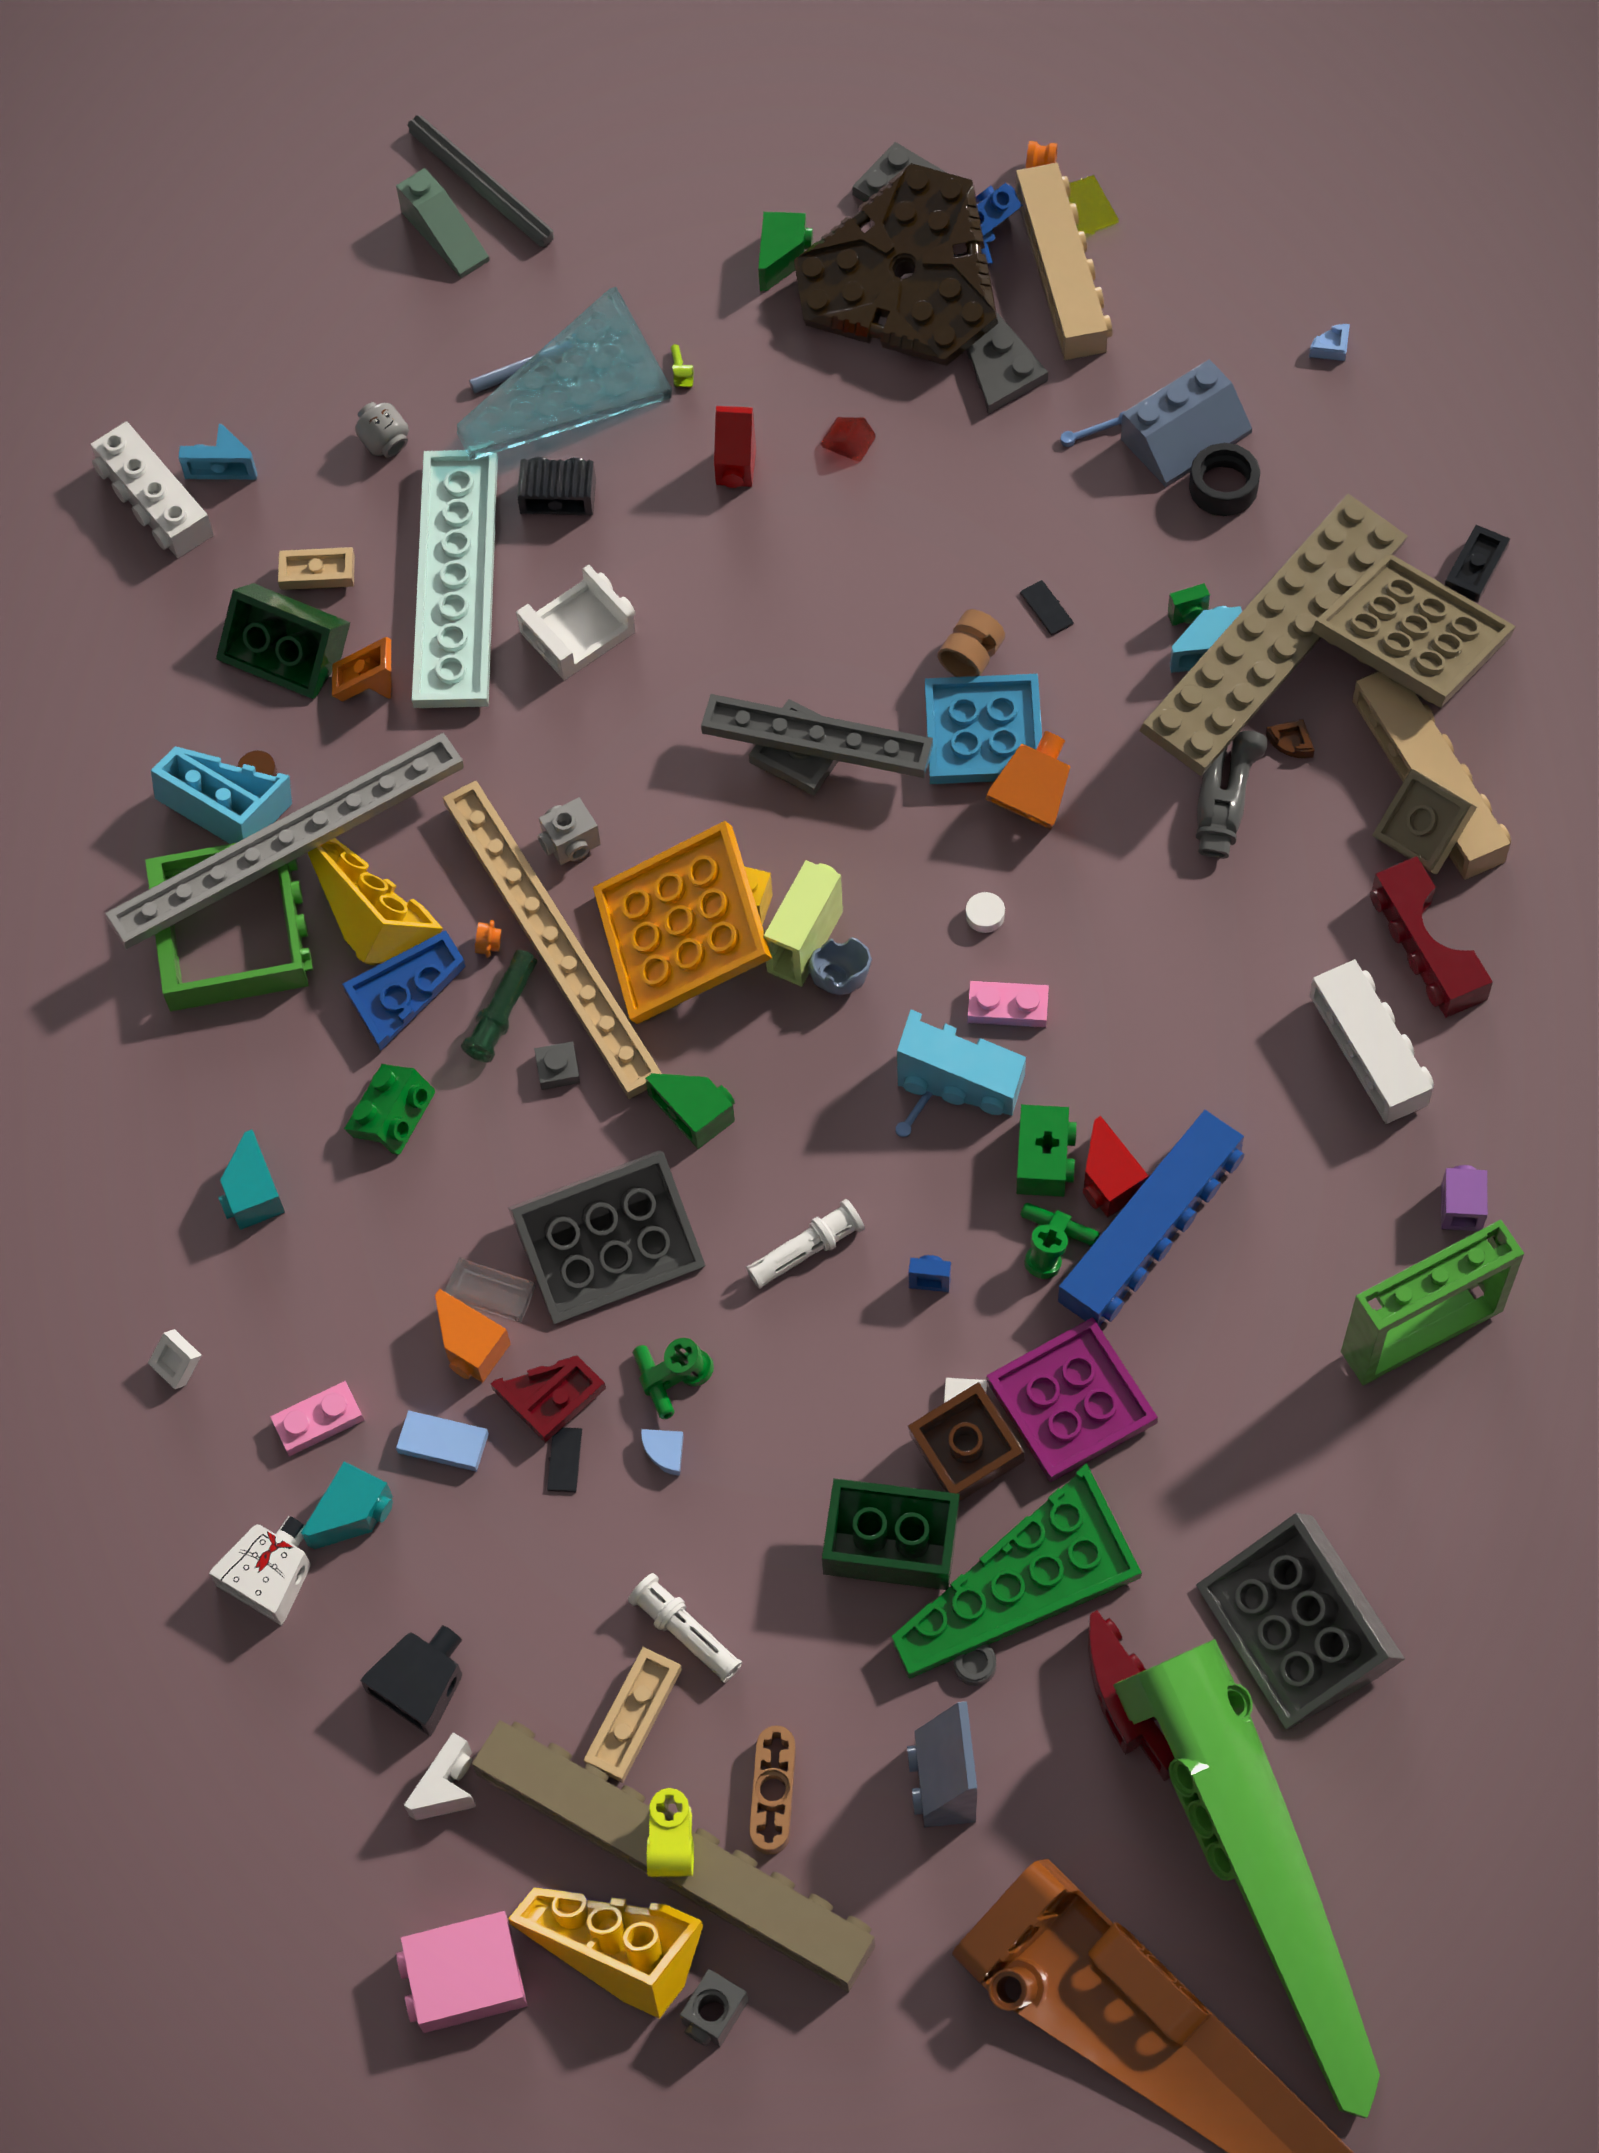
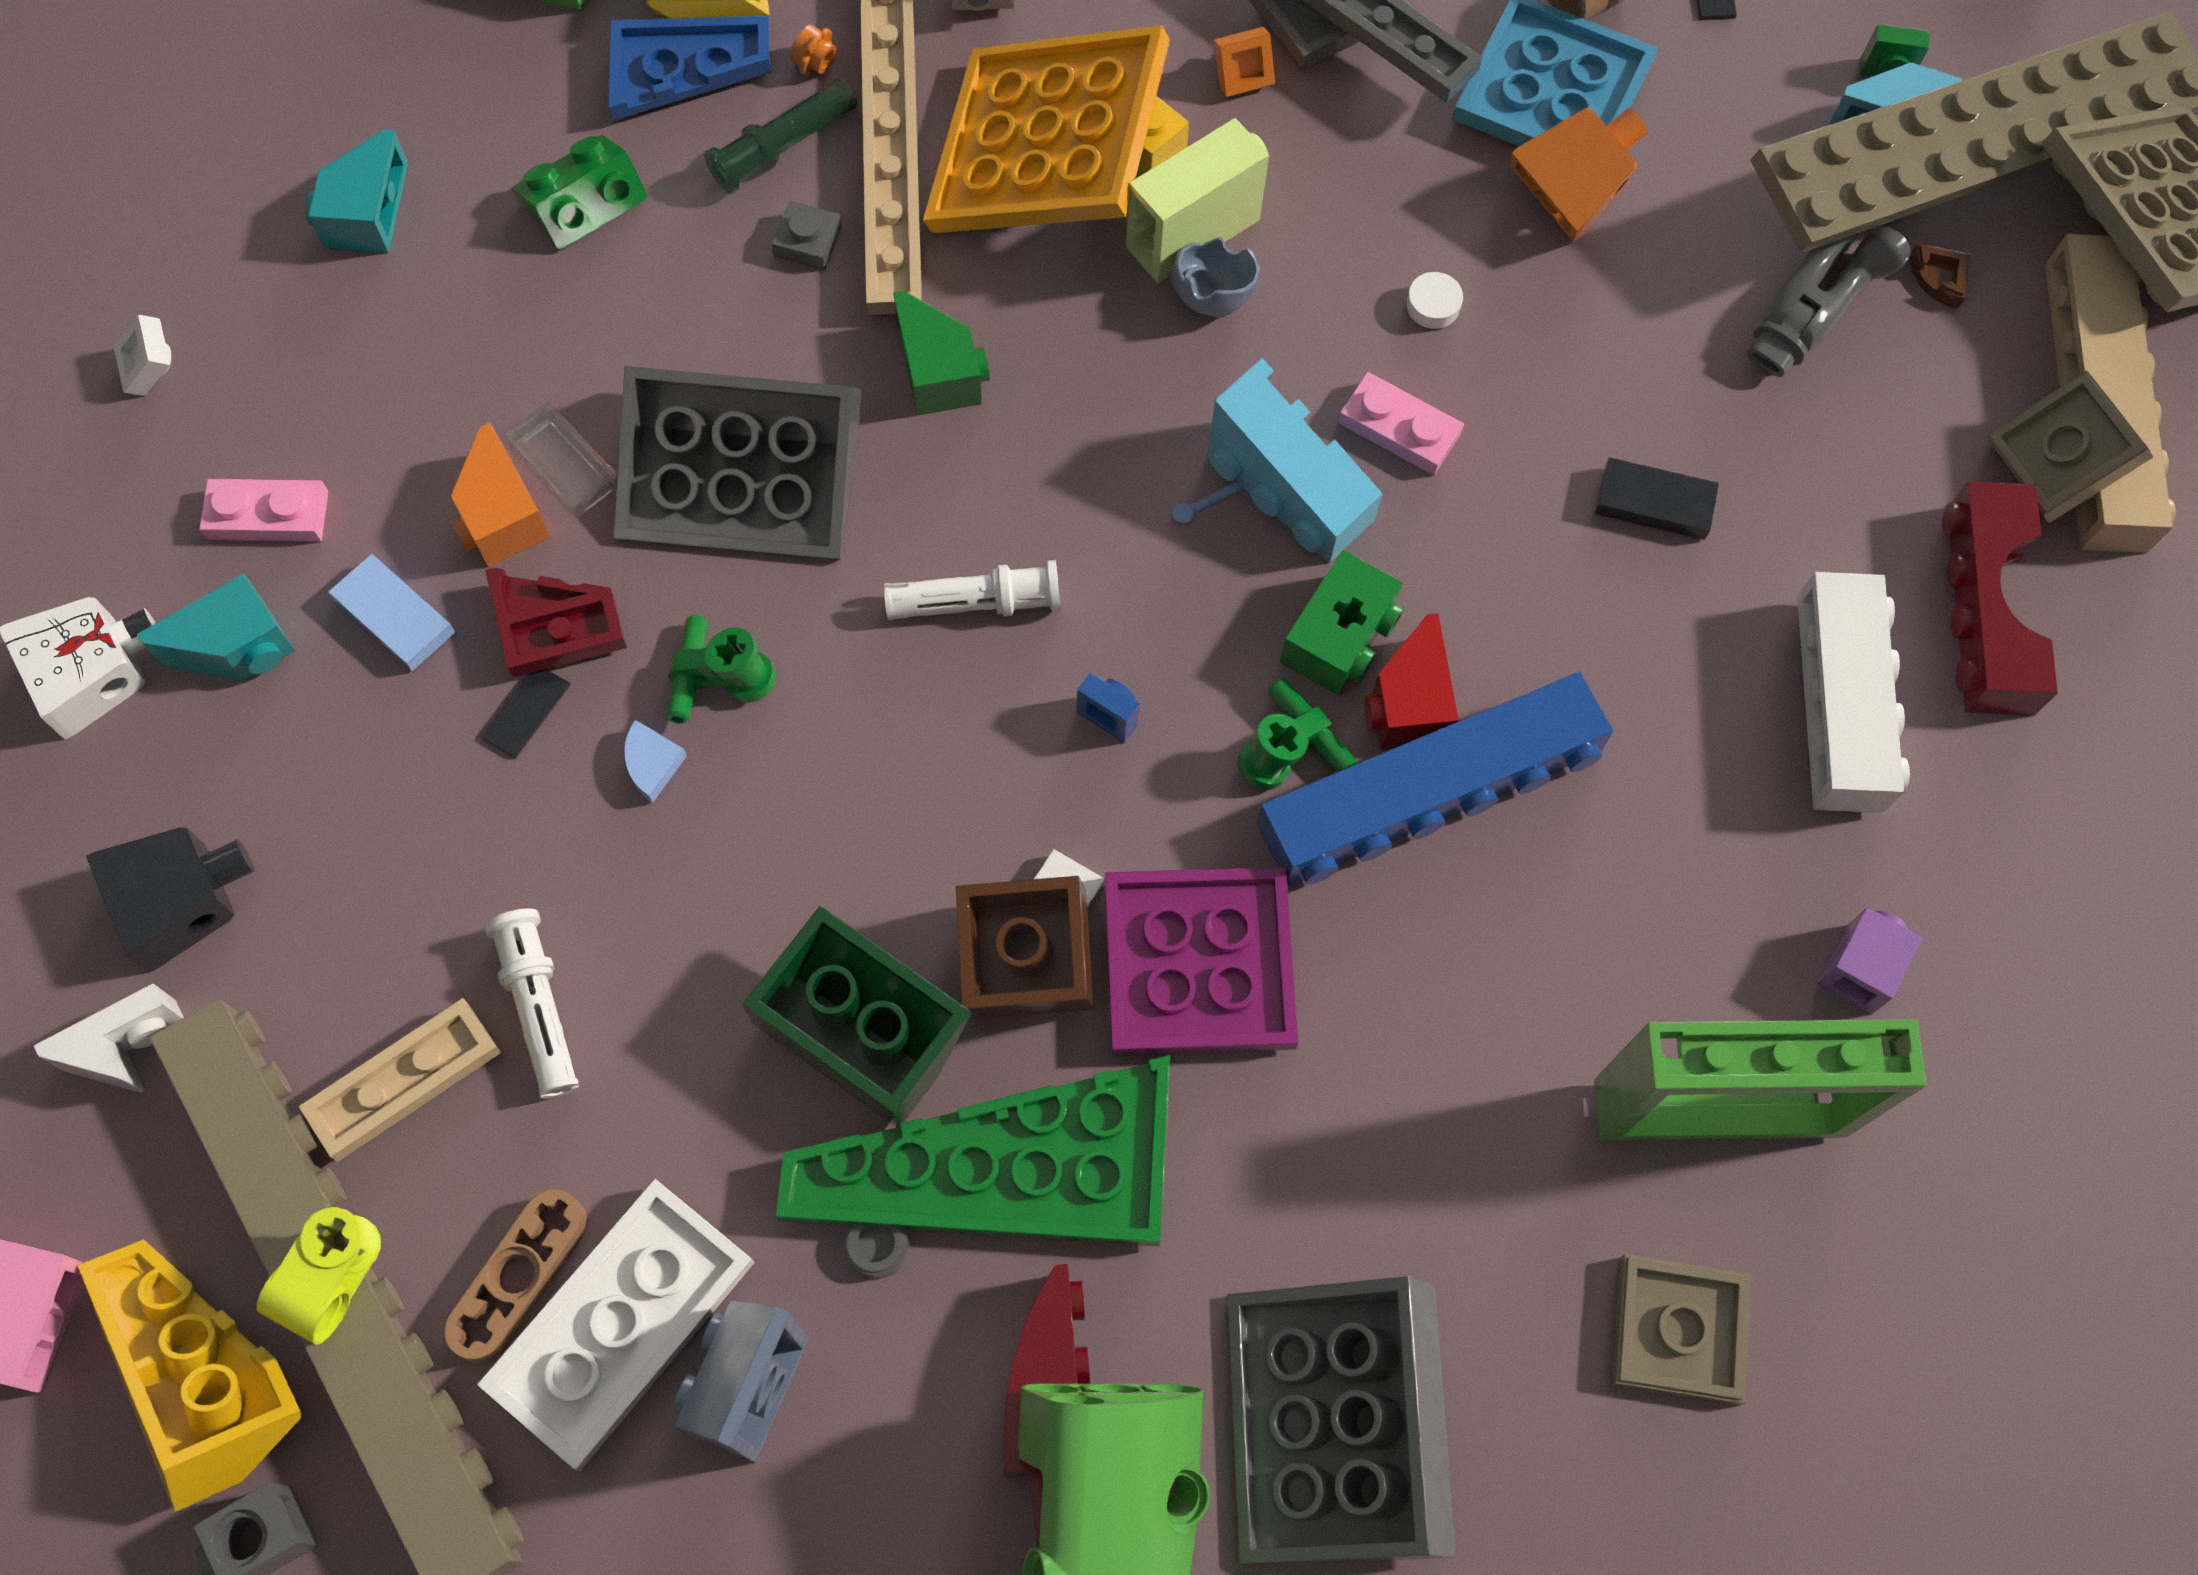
camera: 20 degrees right, 5 degrees up
(776, 810) = (1244, 61): none -> orange tile
(850, 1784) = (616, 1325): none -> white plate
(1192, 974) = (1657, 498): none -> black tile
(1465, 1469) = (1681, 1330): none -> dark tan tile

